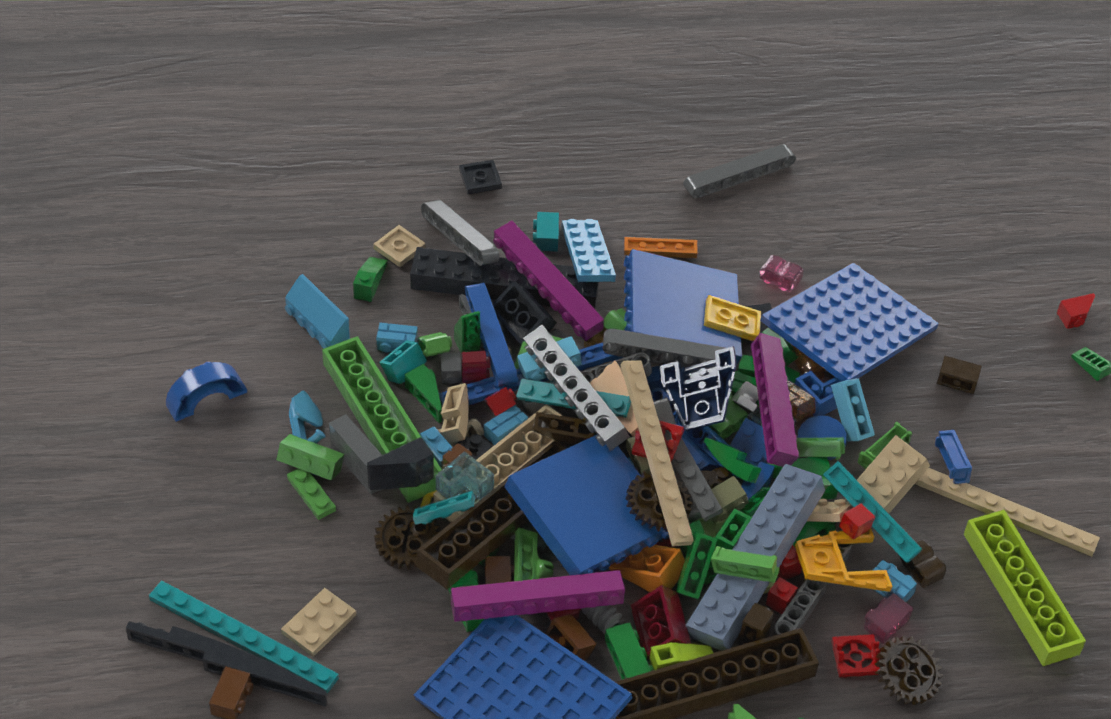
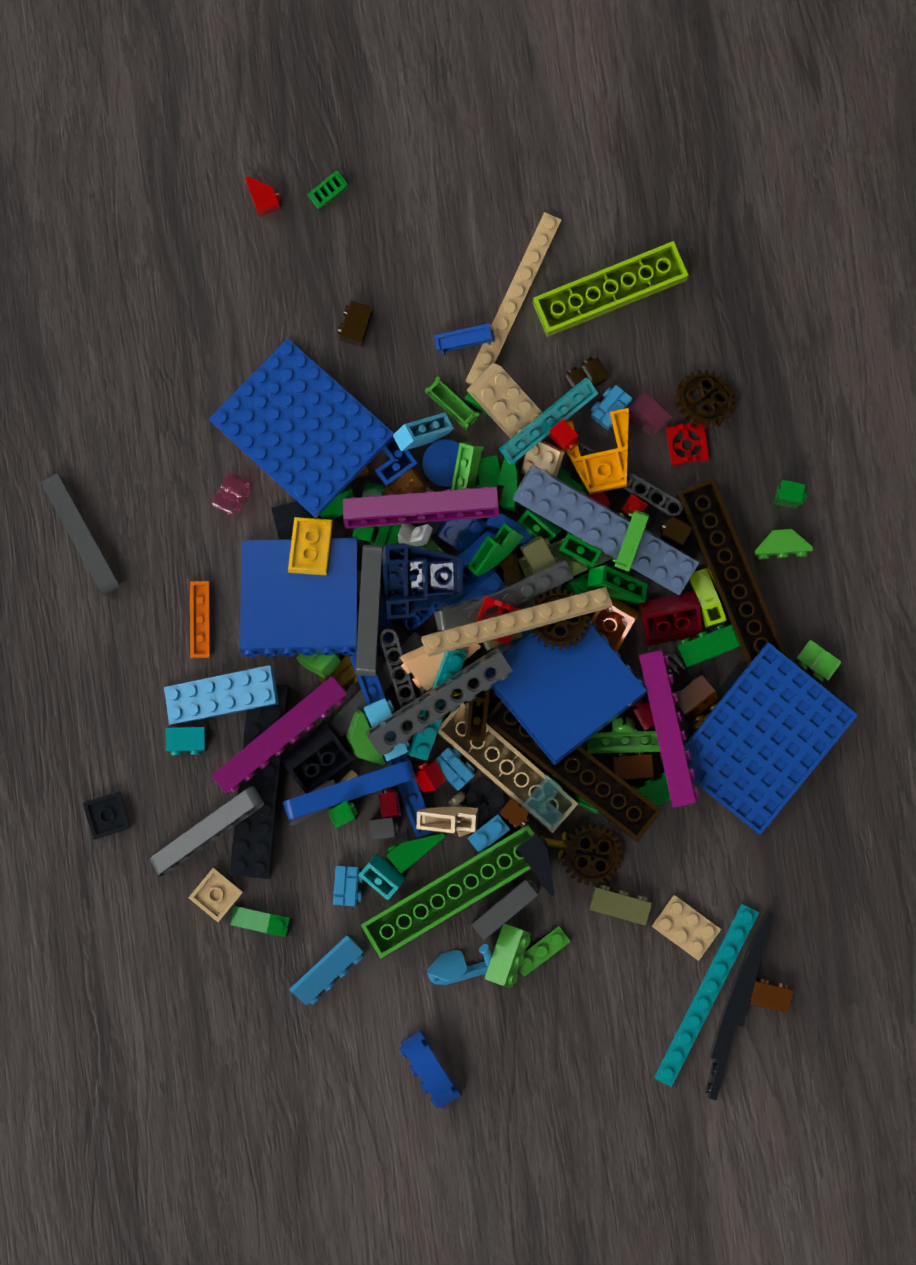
camera: 90 degrees left, 35 degrees up
(350, 559) = (620, 905): none -> olive brick
(435, 344) = (358, 846): bright green brick -> none
(444, 508) = (575, 821): teal plate -> none

